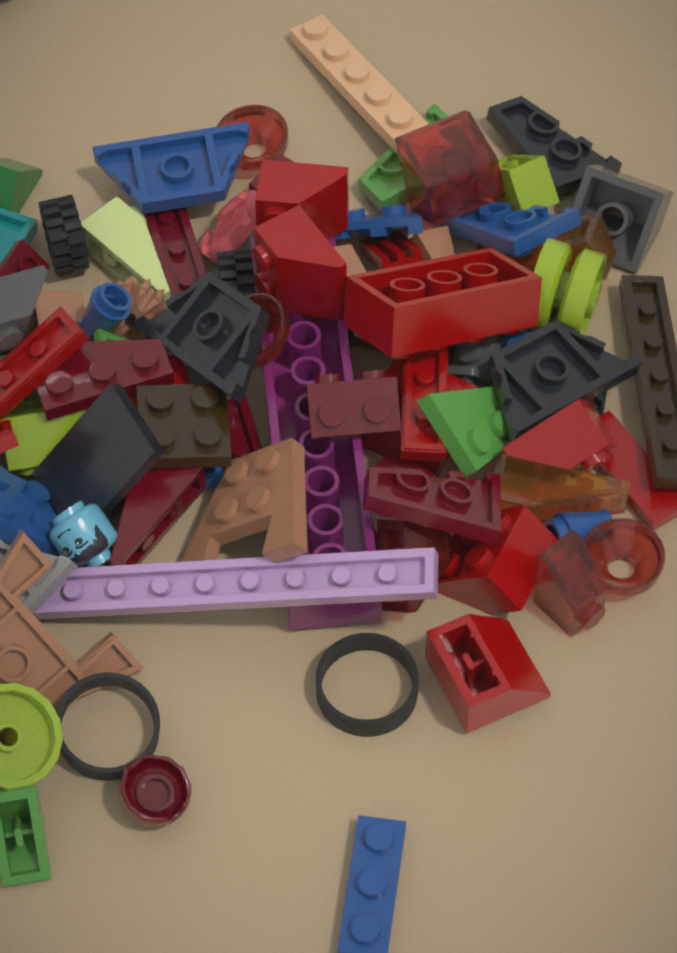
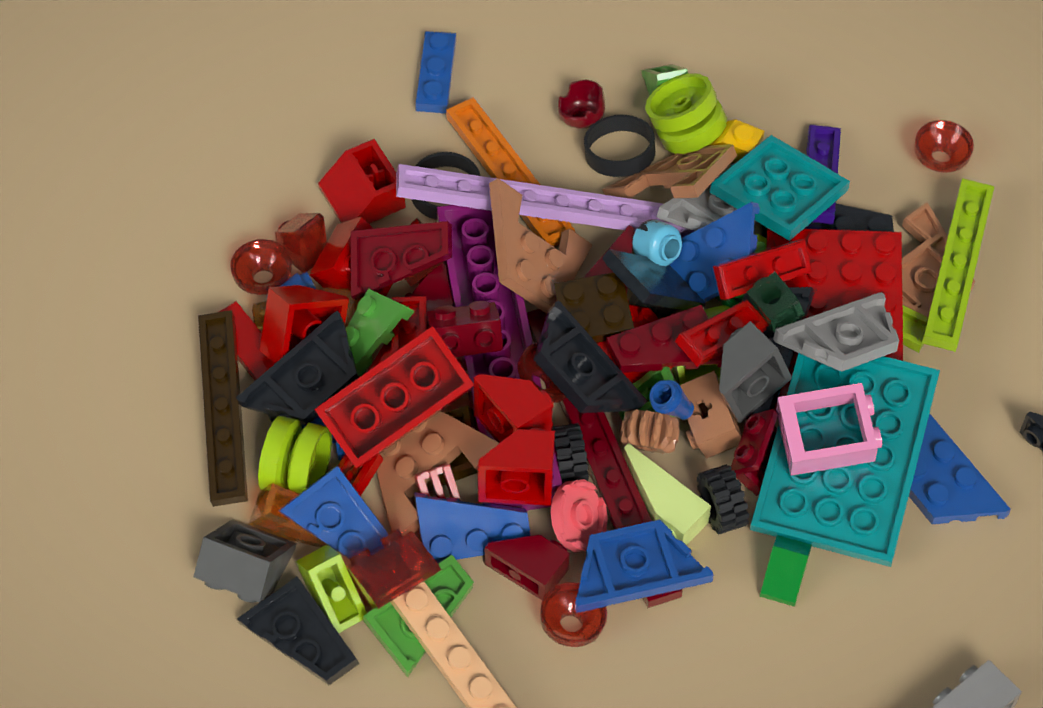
camera: 175 degrees right, 0 degrees up
(282, 712) = (500, 160): none -> orange plate

